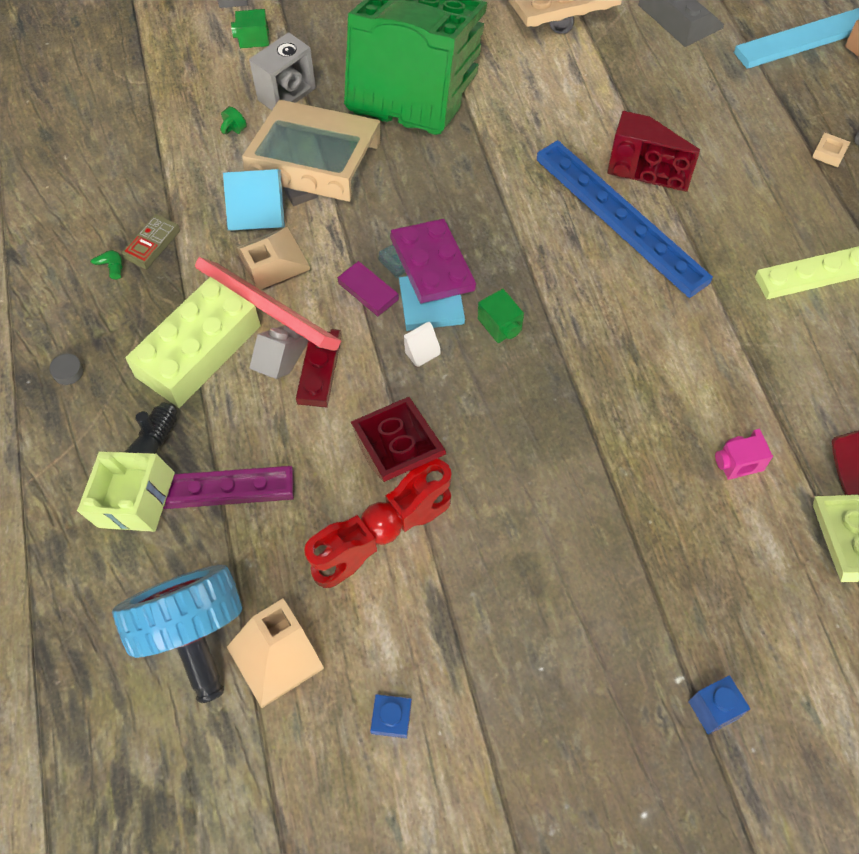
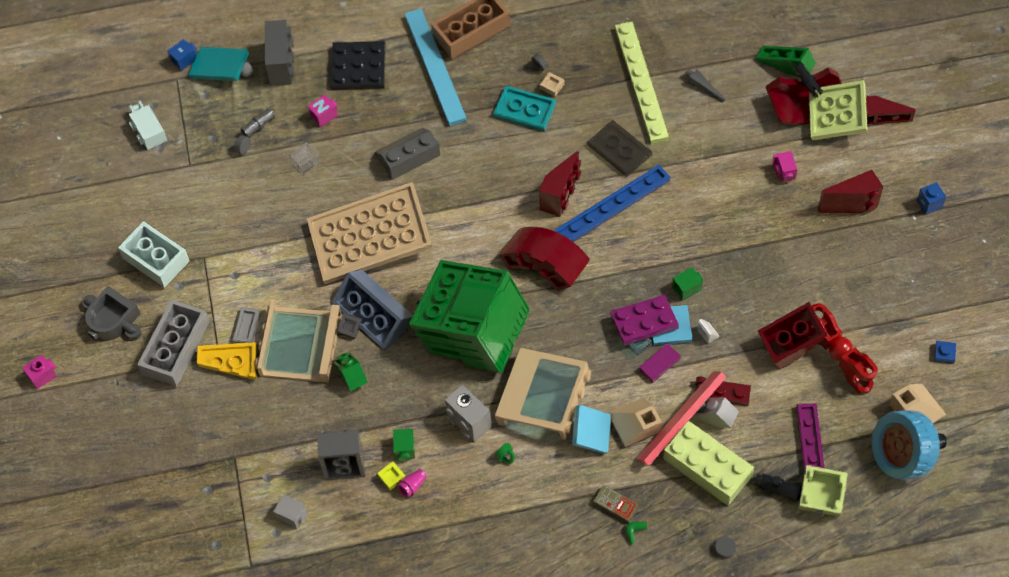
camera: 85 degrees left, 0 degrees up
(199, 39) = (411, 483): none -> dark pink cone
(212, 22) = (391, 475): none -> neon yellow plate
(532, 152) = (548, 252): none -> dark red panel
(700, 558) = (852, 195): none -> dark red slope
(736, 235) = (619, 148): none -> clear smoke tile
(782, 126) = (525, 108): none -> teal tile

